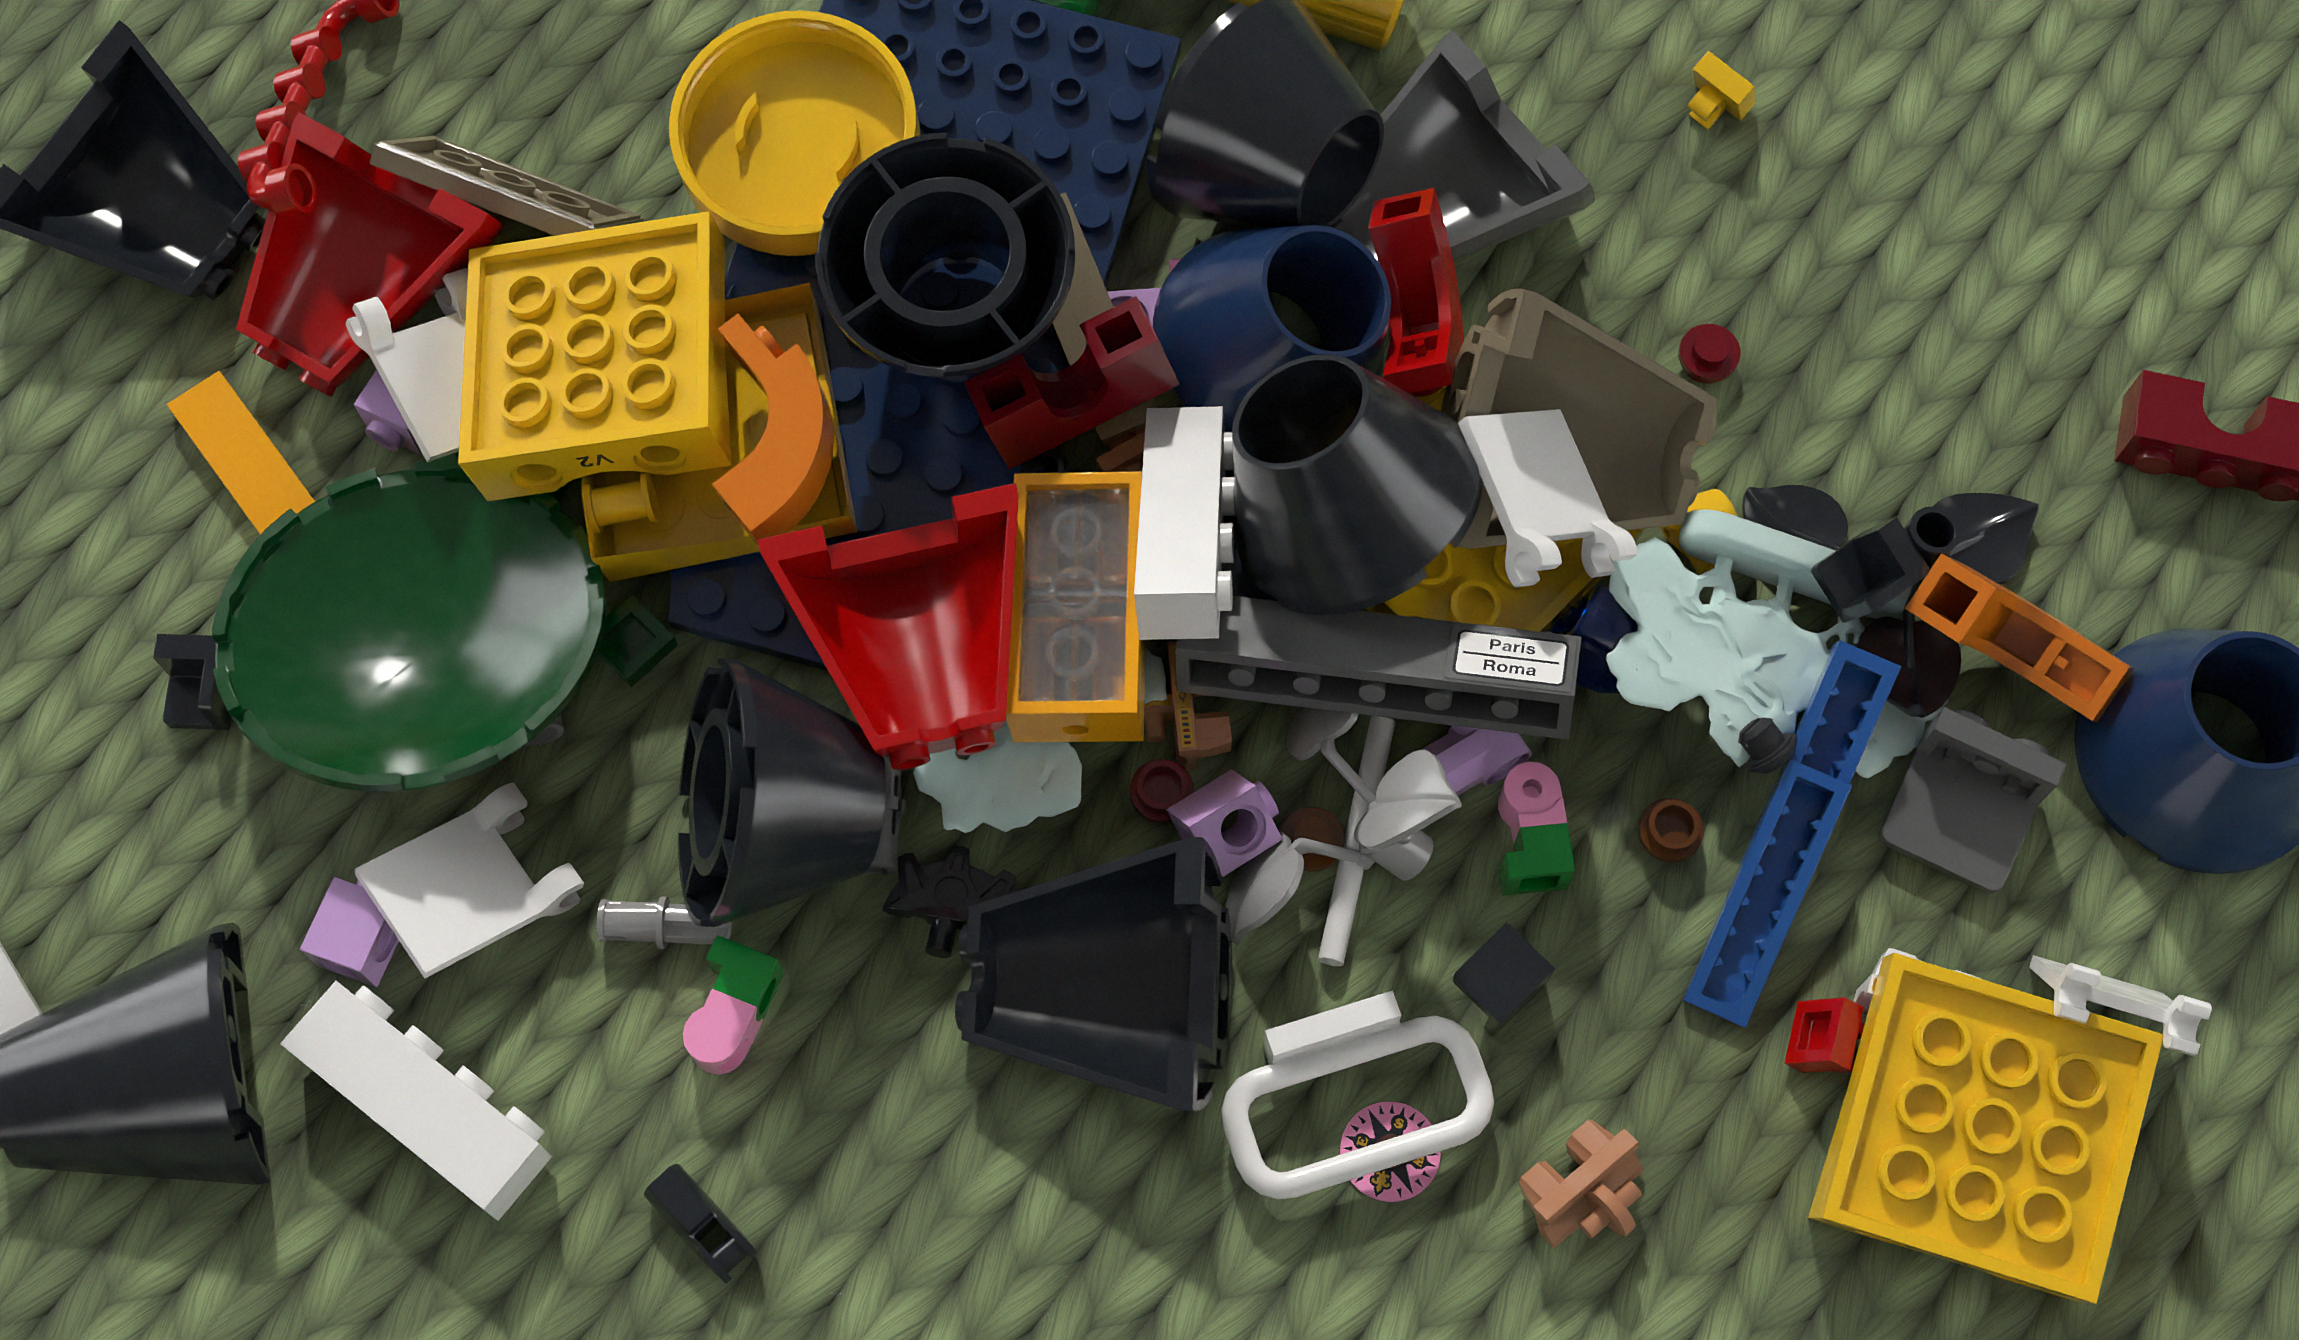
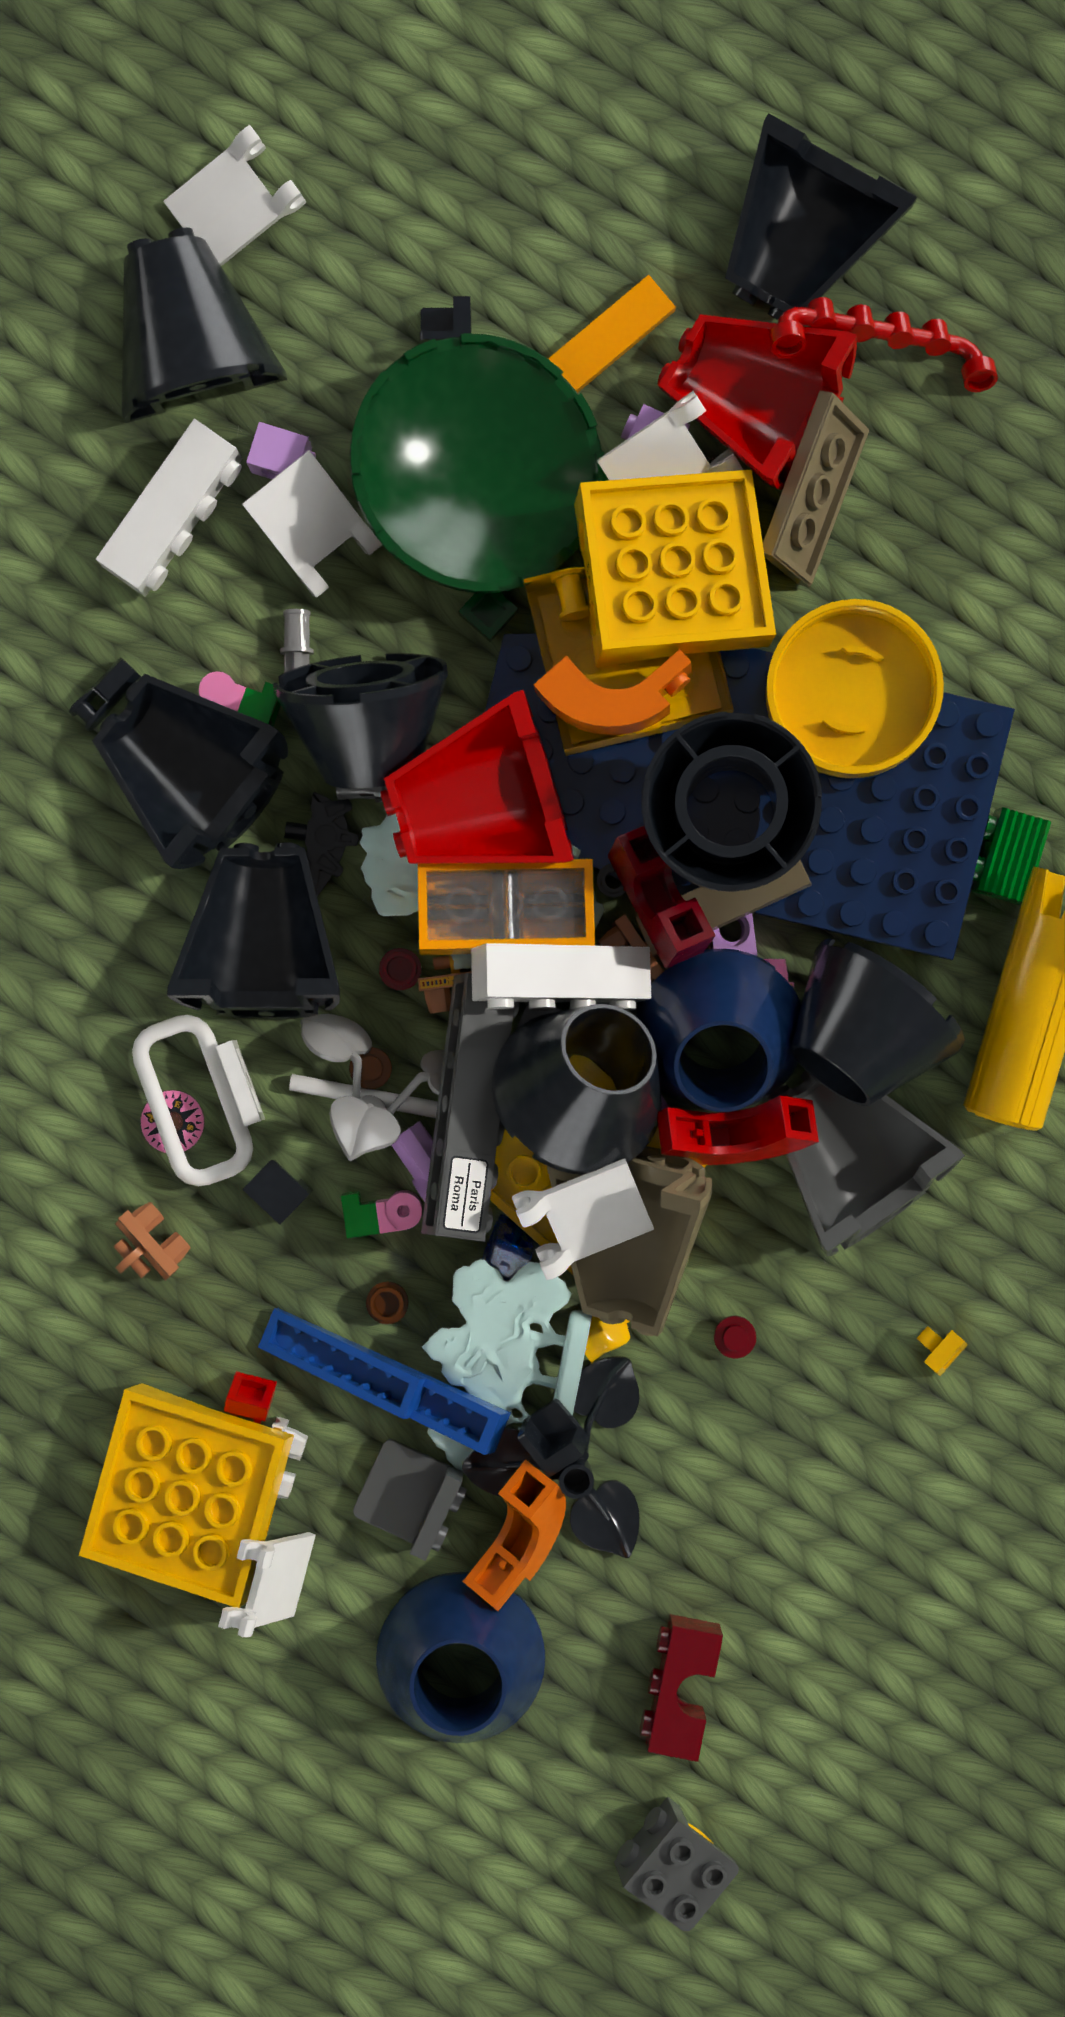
camera: 85 degrees right, 20 degrees up
(821, 1080) = (190, 768): none -> black cone
(1206, 808) = (373, 1011): lavender brick -> none
(1766, 745) = (431, 1365): black piece -> none

